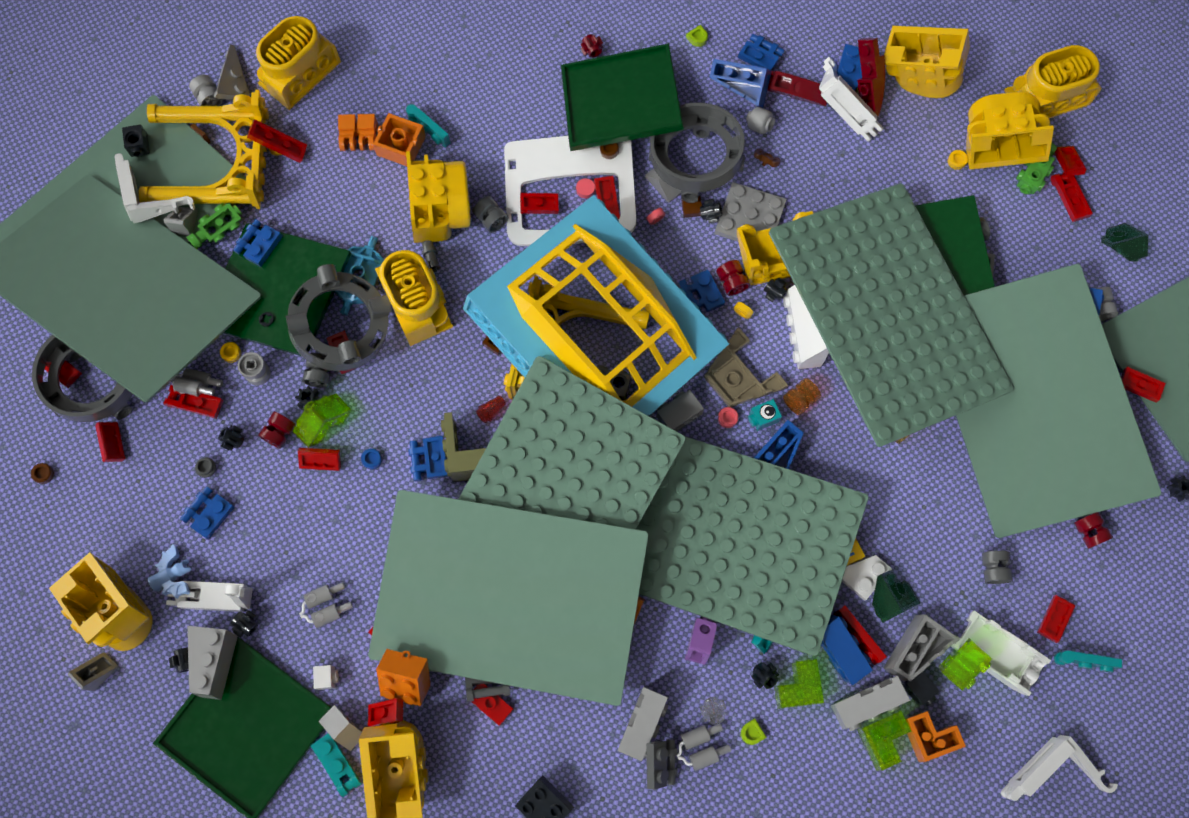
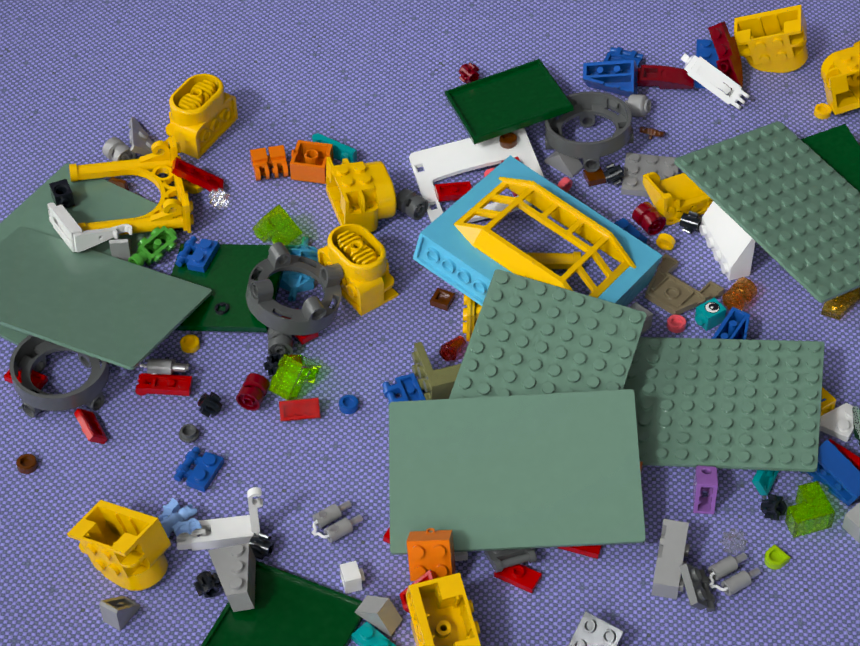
camera: 10 degrees left, 25 degrees down
(254, 368) = (218, 348): light grey wheel -> none
(295, 171) = (219, 198): none -> clear gear
(344, 225) = (277, 226): none -> clear neon green brick
(697, 36) = (562, 57): lime tile -> none

